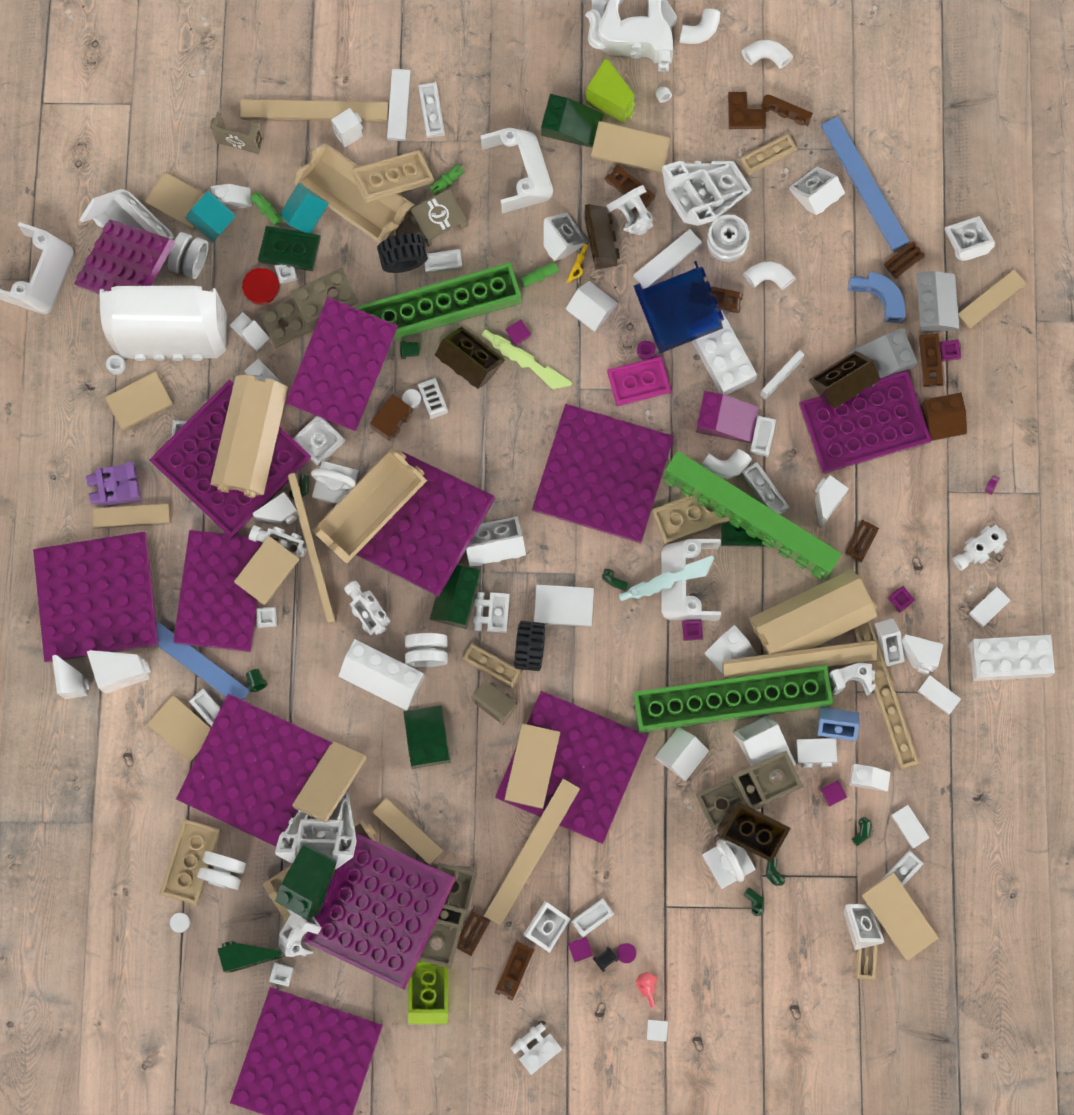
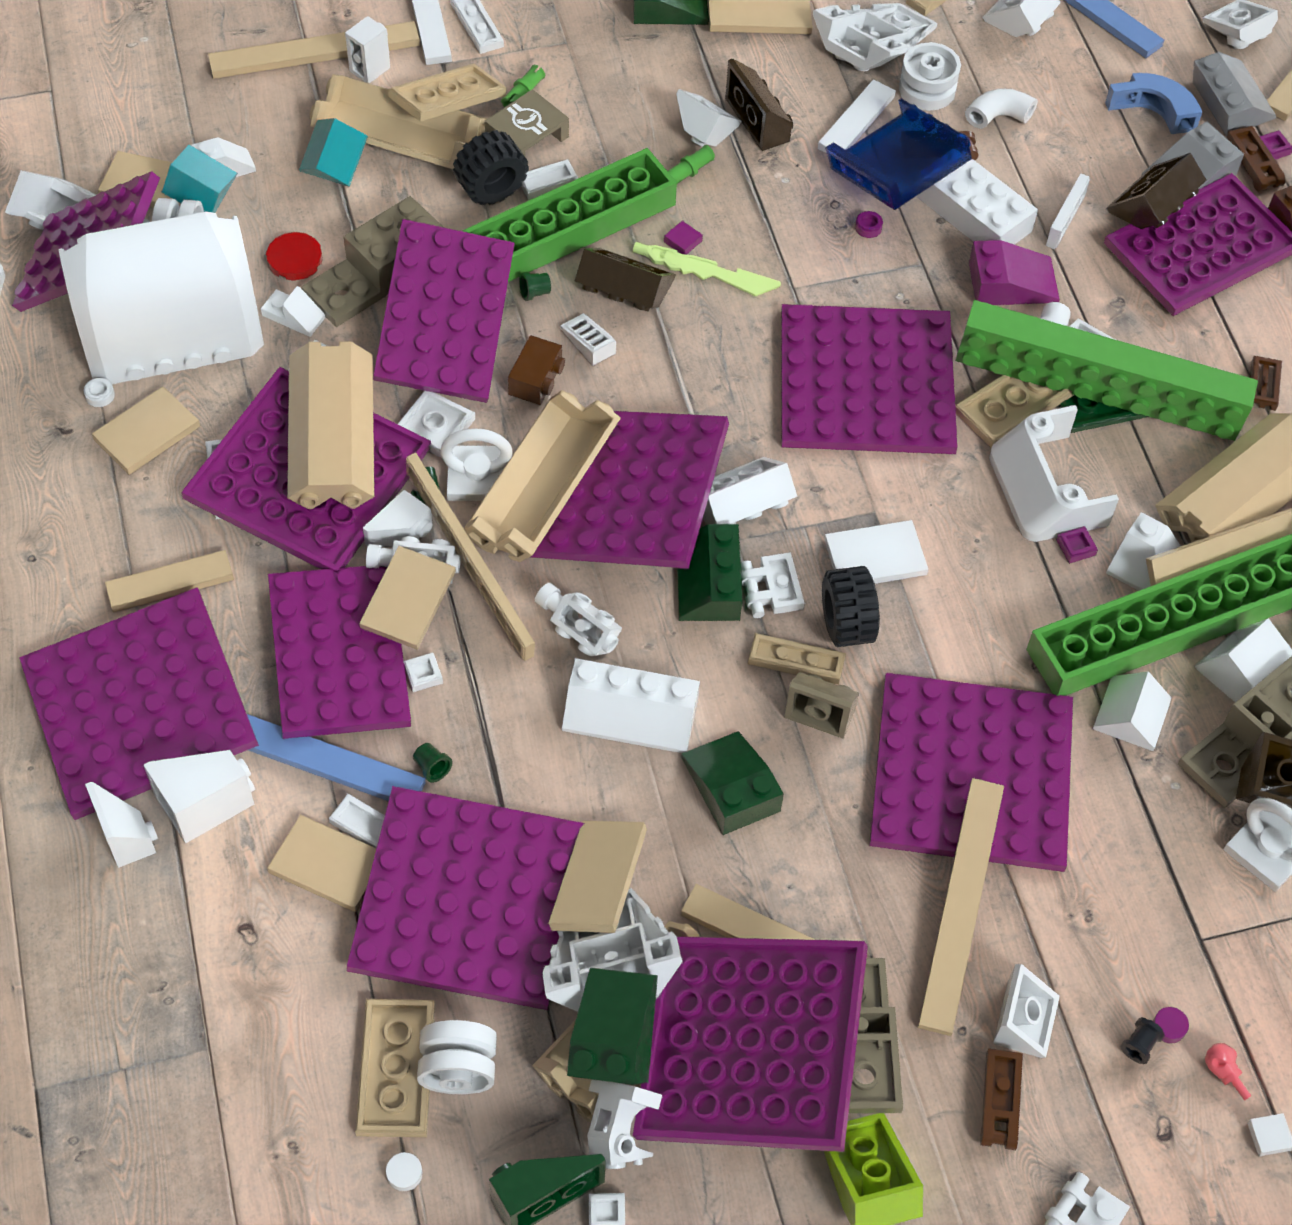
camera: 20 degrees left, 20 degrees down
(125, 493) = (133, 542): medium lavender hips -> none
(250, 142) = (214, 88): dark tan panel -> none
(266, 208) = (278, 164): bright green pin -> none
(285, 274) = (327, 233): white tile -> none
(289, 248) = (323, 204): dark green tile -> none
(412, 398) = (563, 339): white tile -> none
(426, 650) = (693, 647): white wheel -> none
(480, 918) = (914, 1032): reddish brown tile -> none
(532, 766) = (915, 777): tan tile -> none
(537, 185) = (647, 71): white windscreen -> none
(577, 265) = (737, 149): yellow hand -> none
(580, 949) = (1094, 1038): magenta tile -> none
(591, 305) = (772, 190): white slope -> none
(592, 917) = (1093, 984): white tile -> none
(612, 581) = (928, 503): dark green arm -> none
(626, 203) = (782, 60): white tile -> none
(627, 184) = (775, 51): reddish brown plate -> none
(639, 381) = (873, 261): dark pink tile -> none
(665, 581) = (1020, 475): light aqua sword -> none
(763, 436) = (1072, 288): white tile -> none
(828, 497) = (1200, 328): white slope -> none
(916, 250) = (1175, 51): reddish brown tile -> none

